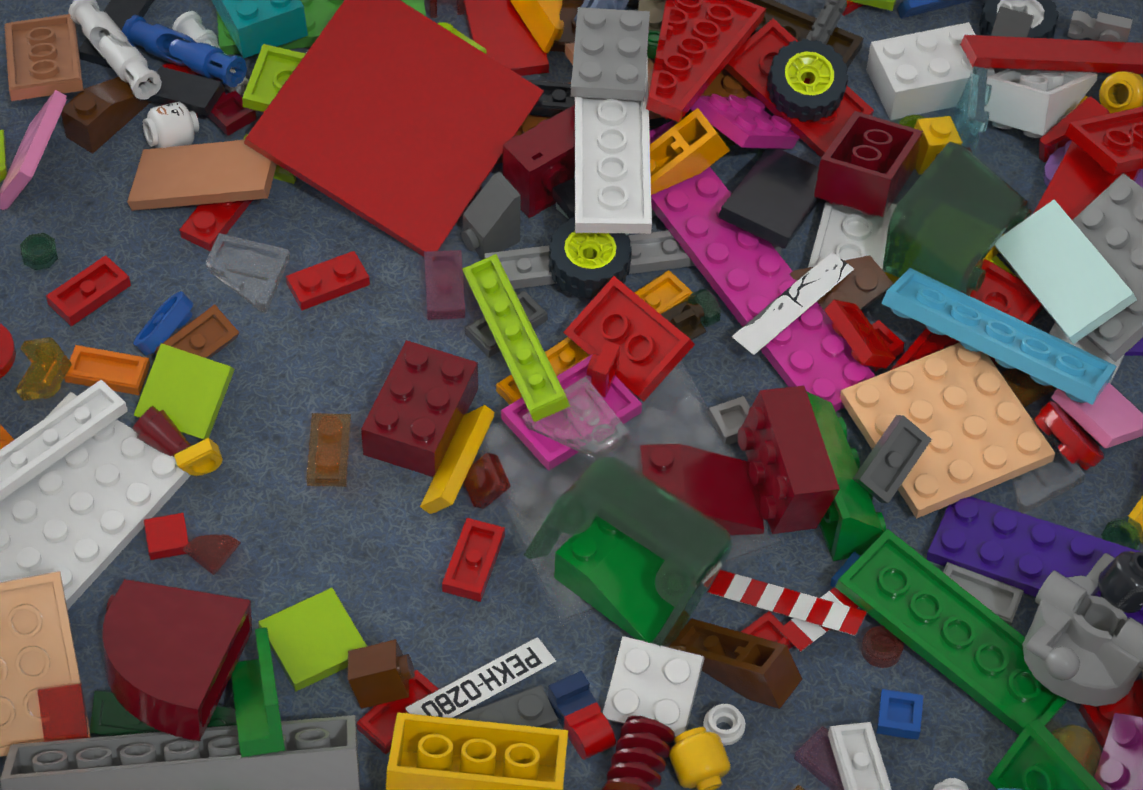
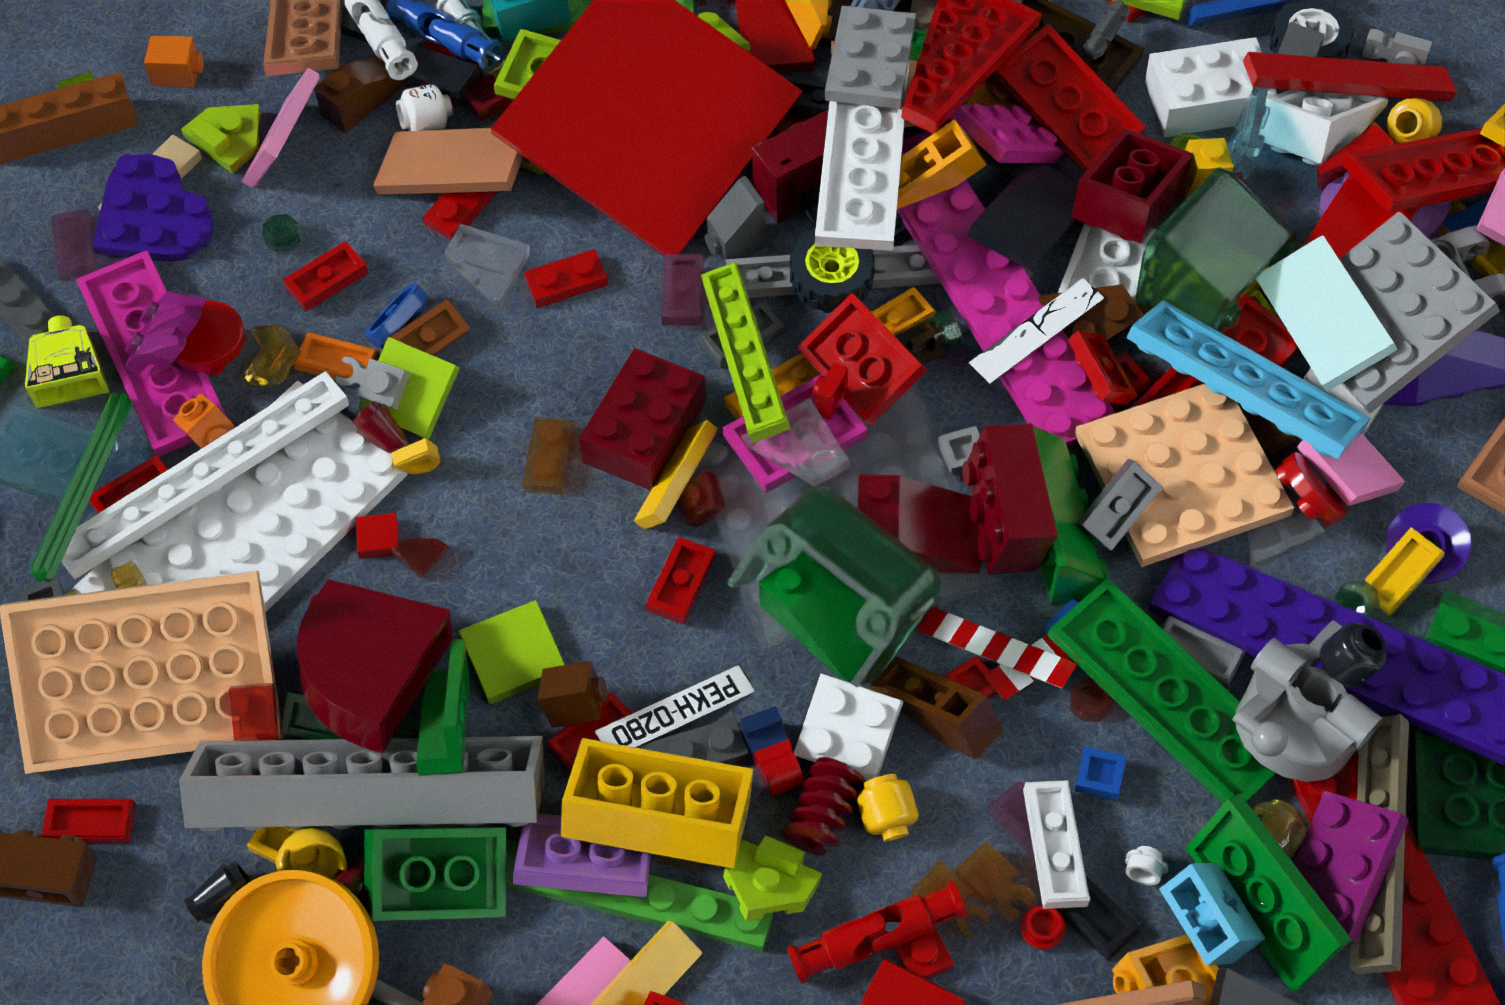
camera: 10 degrees right, 5 degrees up
(152, 388) = (377, 382): none -> light grey plate
(727, 714) = (922, 760): white plate -> none
(809, 61) = (1075, 72): black wheel -> none

